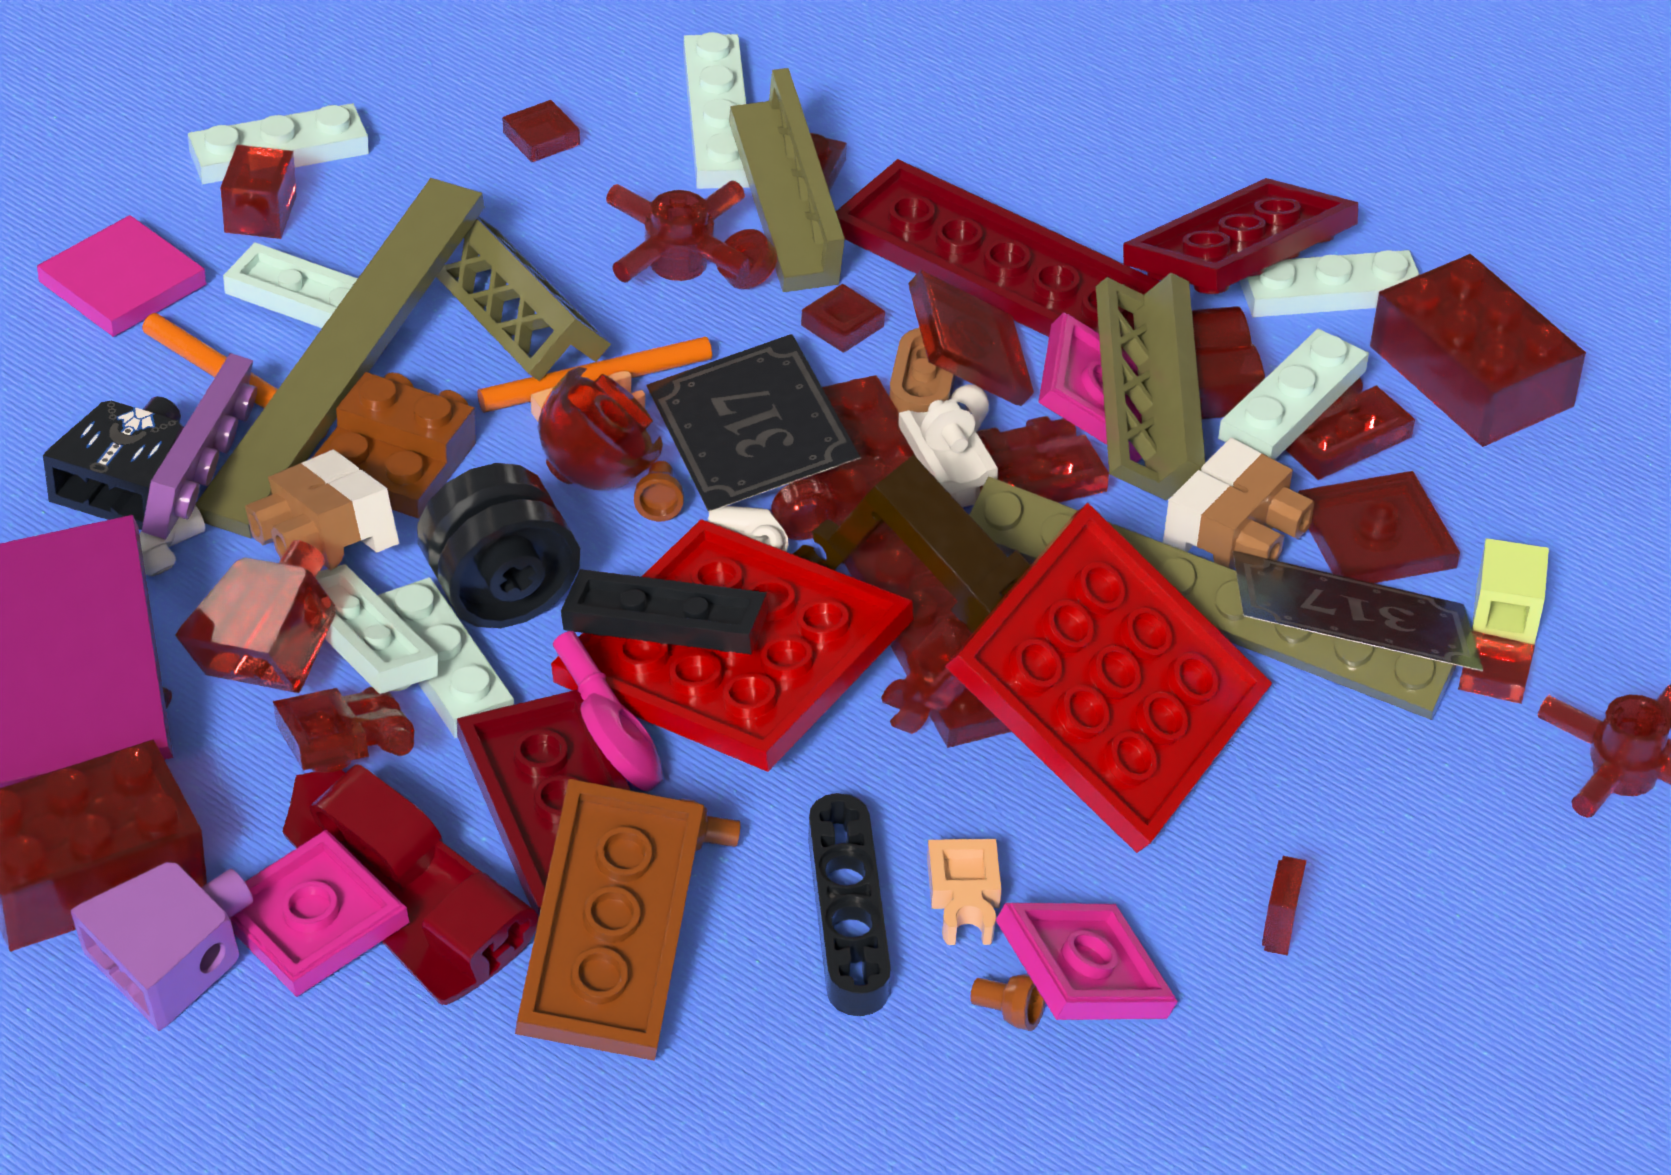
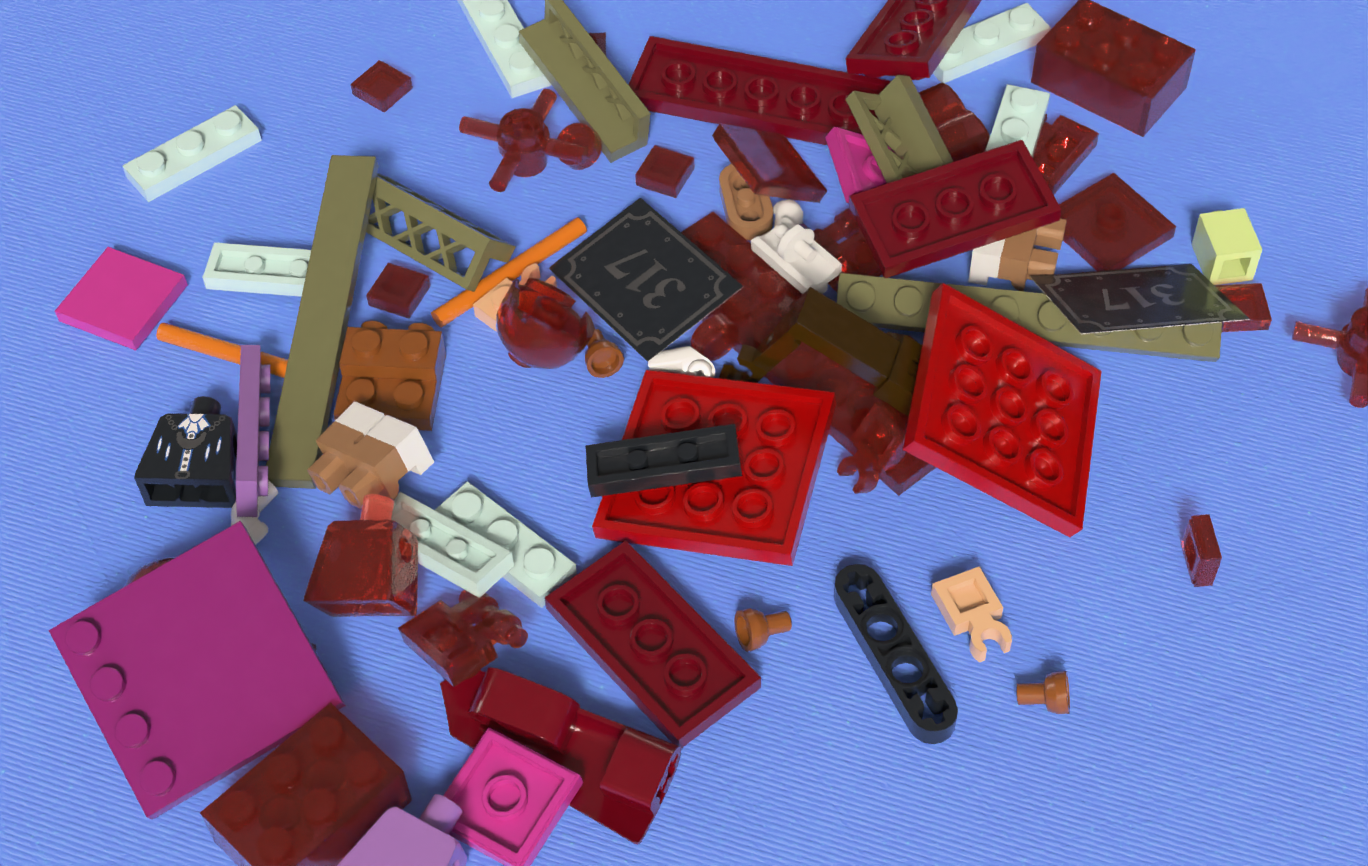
camera: 15 degrees left, 10 degrees up
(258, 191) = (197, 198): clear red brick -> none
(451, 357) = (398, 290): none -> clear red tile
(498, 545) = (515, 444): black wheel -> none
(608, 721) = (660, 563): dark pink piece -> none
(610, 920) = (740, 736): dark orange plate -> none
(1086, 961) = (1089, 646): dark pink tile -> none
(1164, 440) = (954, 208): none -> dark red plate

